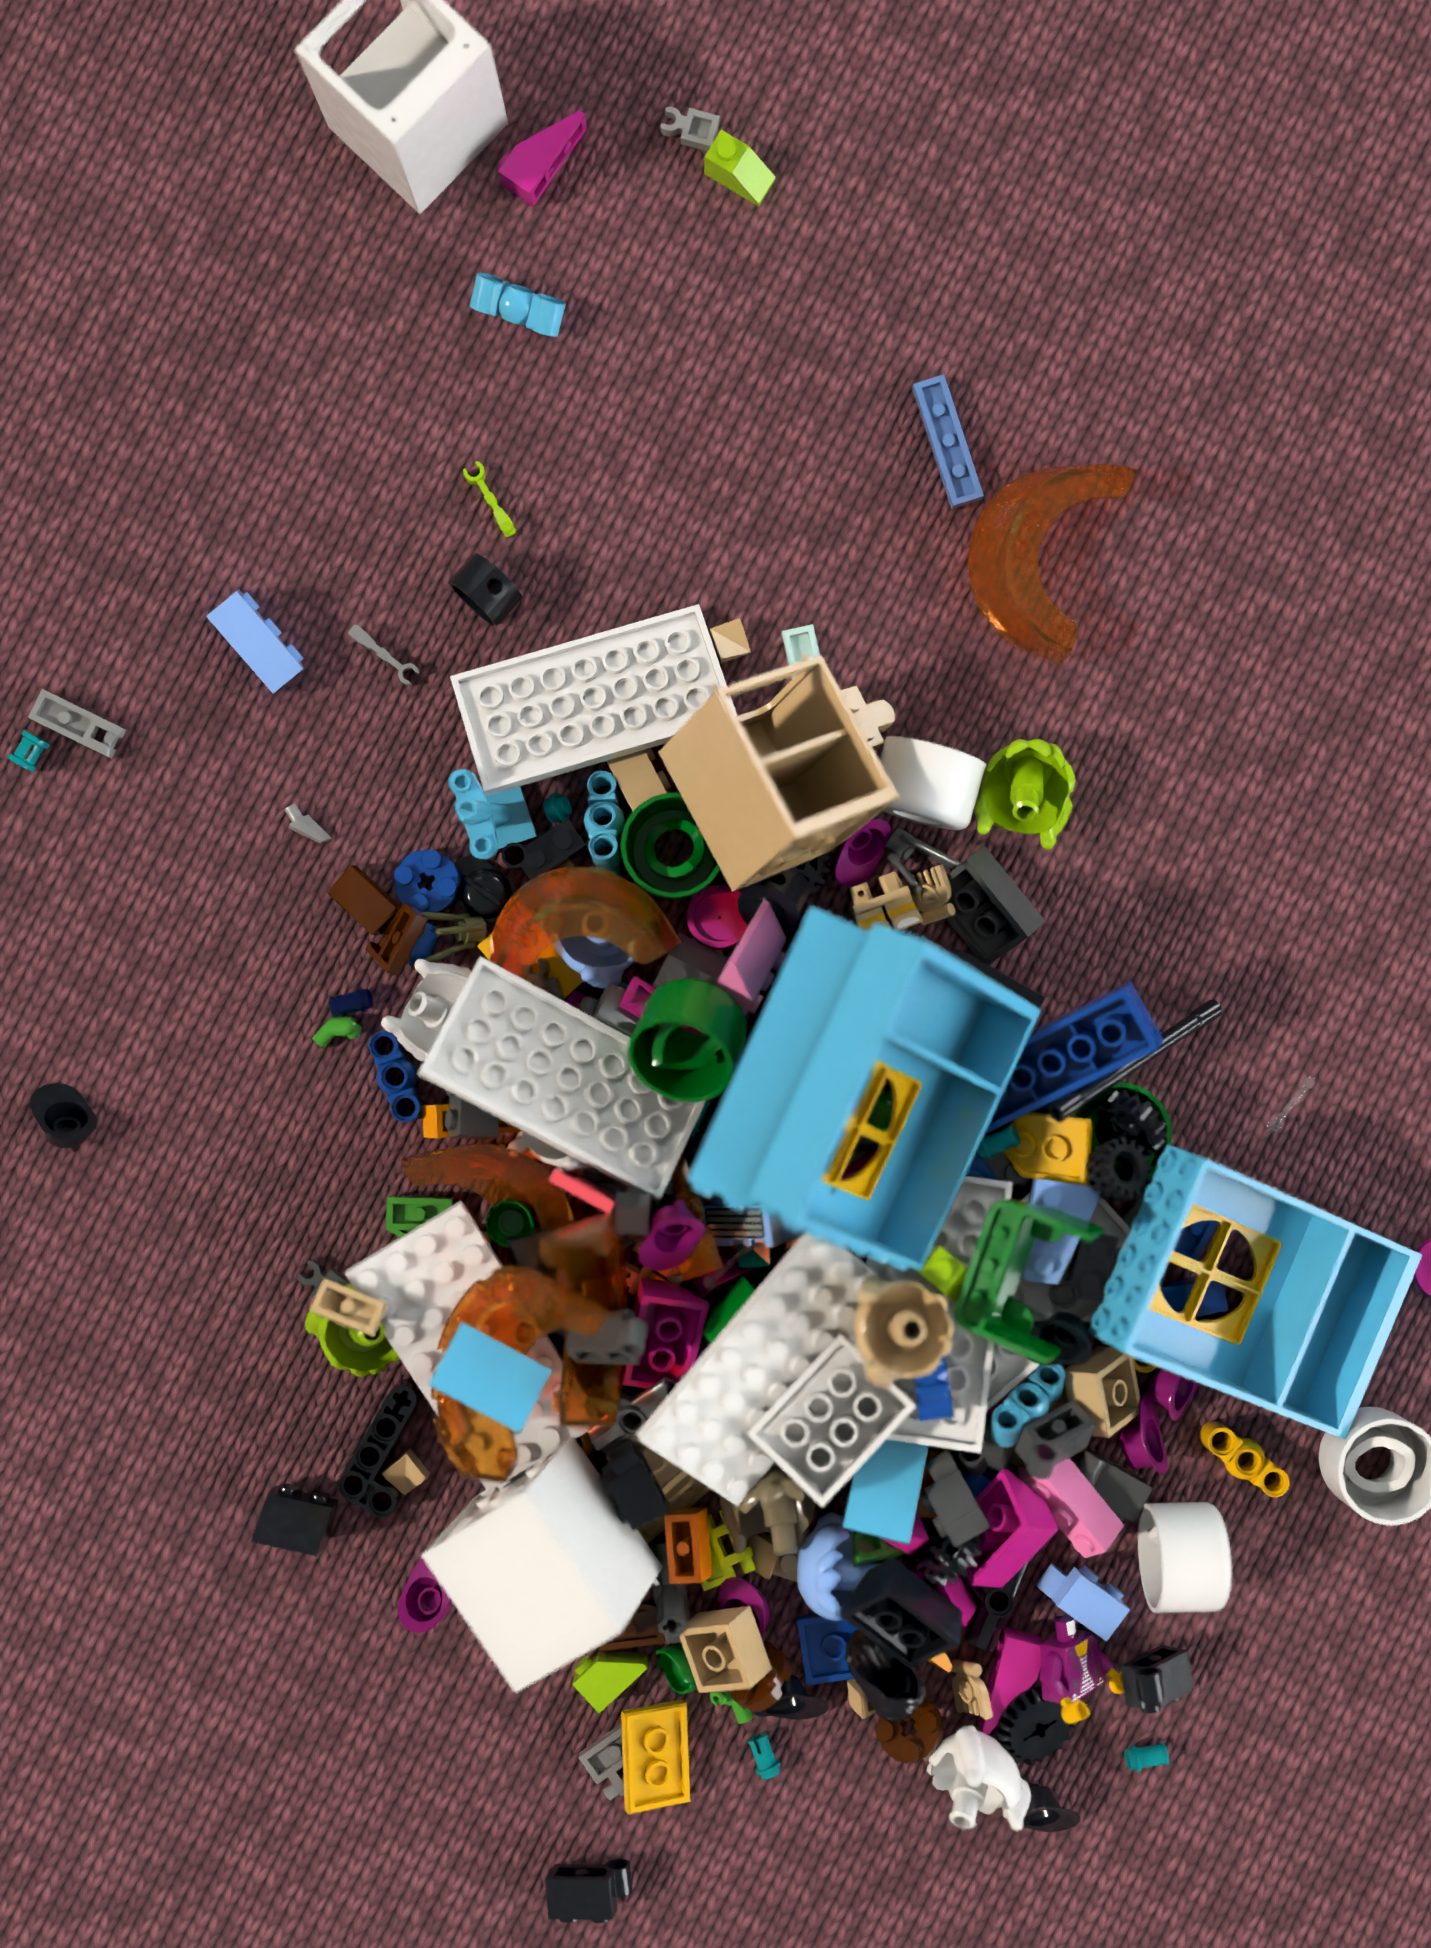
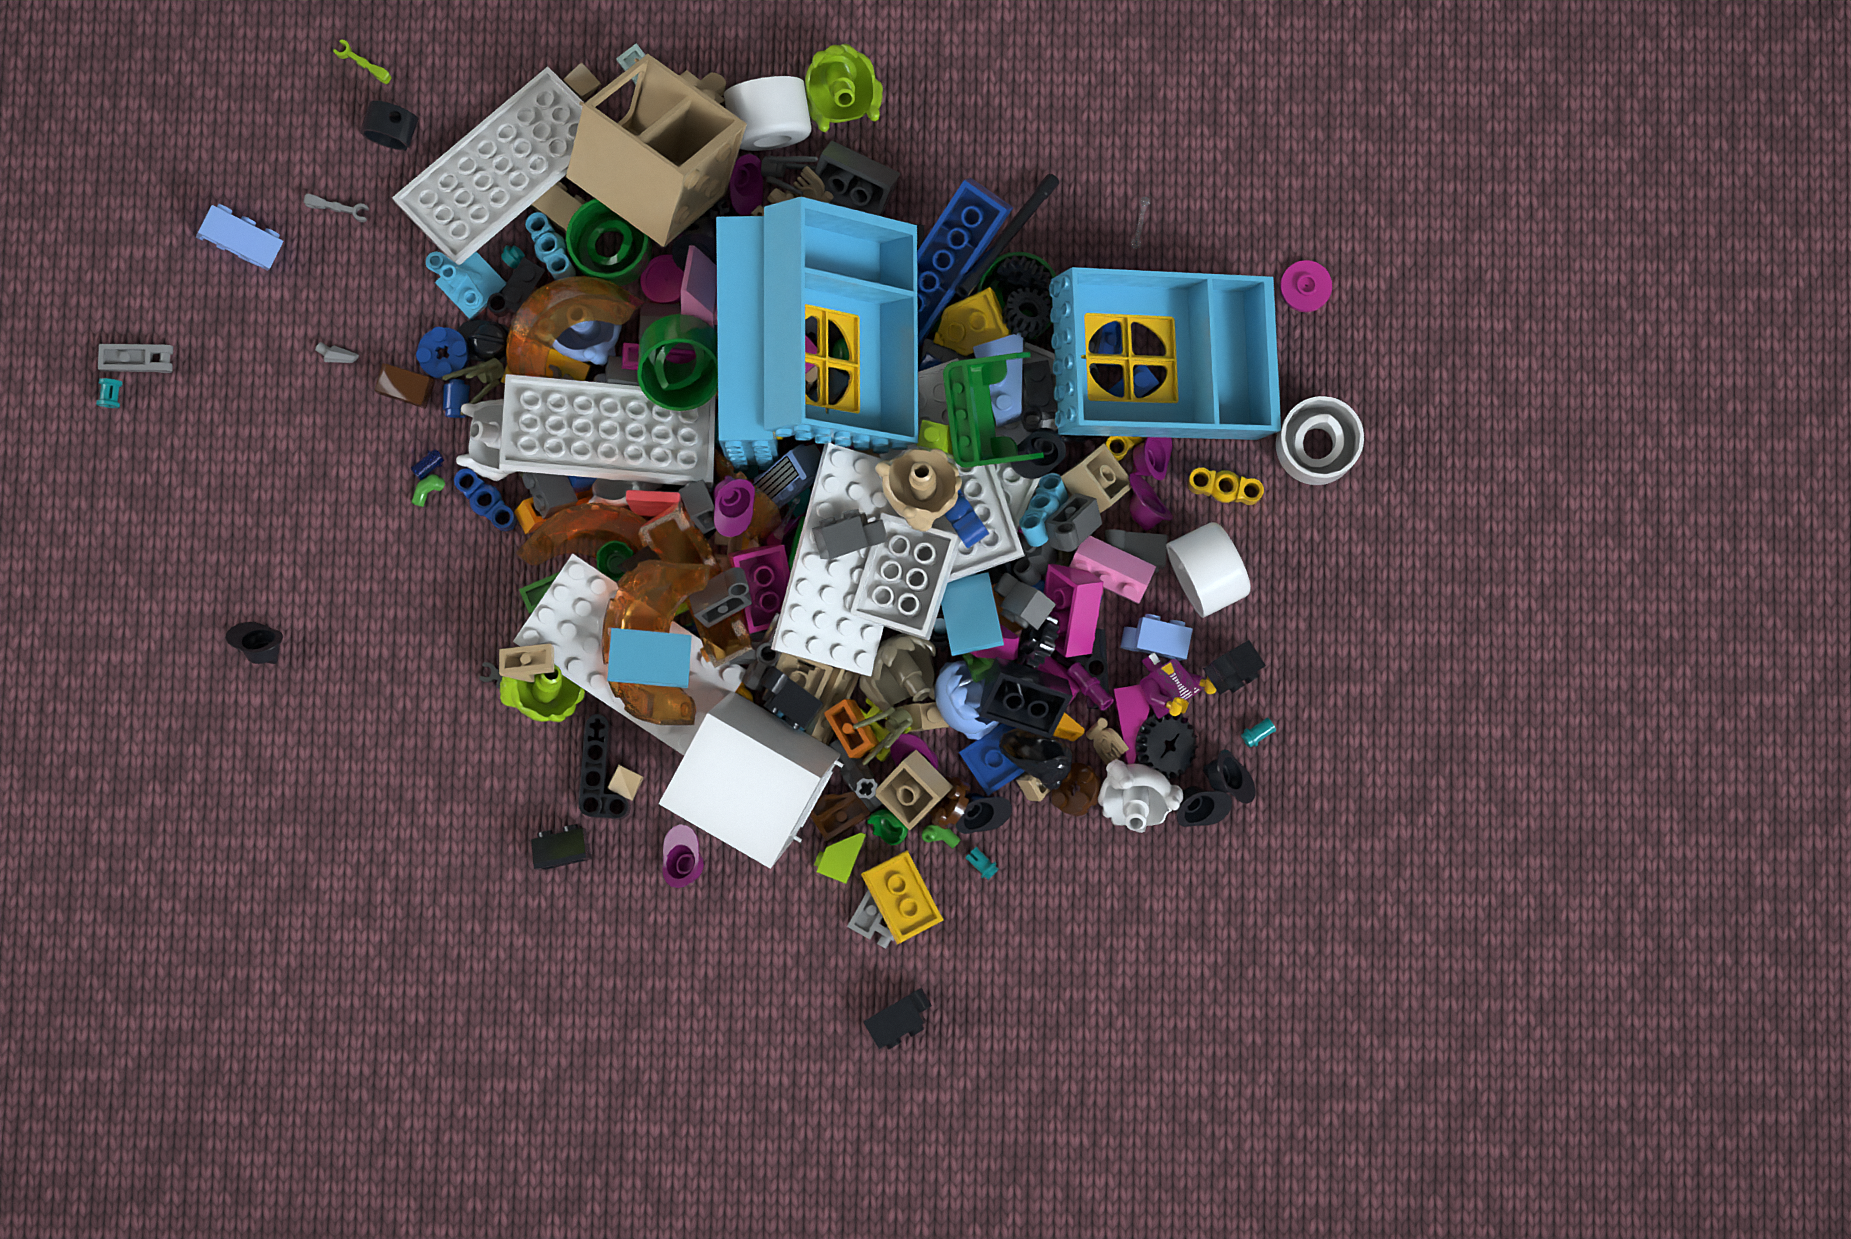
camera: 25 degrees left, 5 degrees down
(401, 934) = (441, 397): reddish brown wing -> none
(743, 1566) = (896, 723): none -> olive plant
(788, 1350) = (847, 534): none -> dark grey hinge
(982, 1625) = (1090, 686): none -> magenta pin
(998, 1142) = (935, 338): teal pin -> none
(1090, 1796) = (1231, 777): none -> black piece

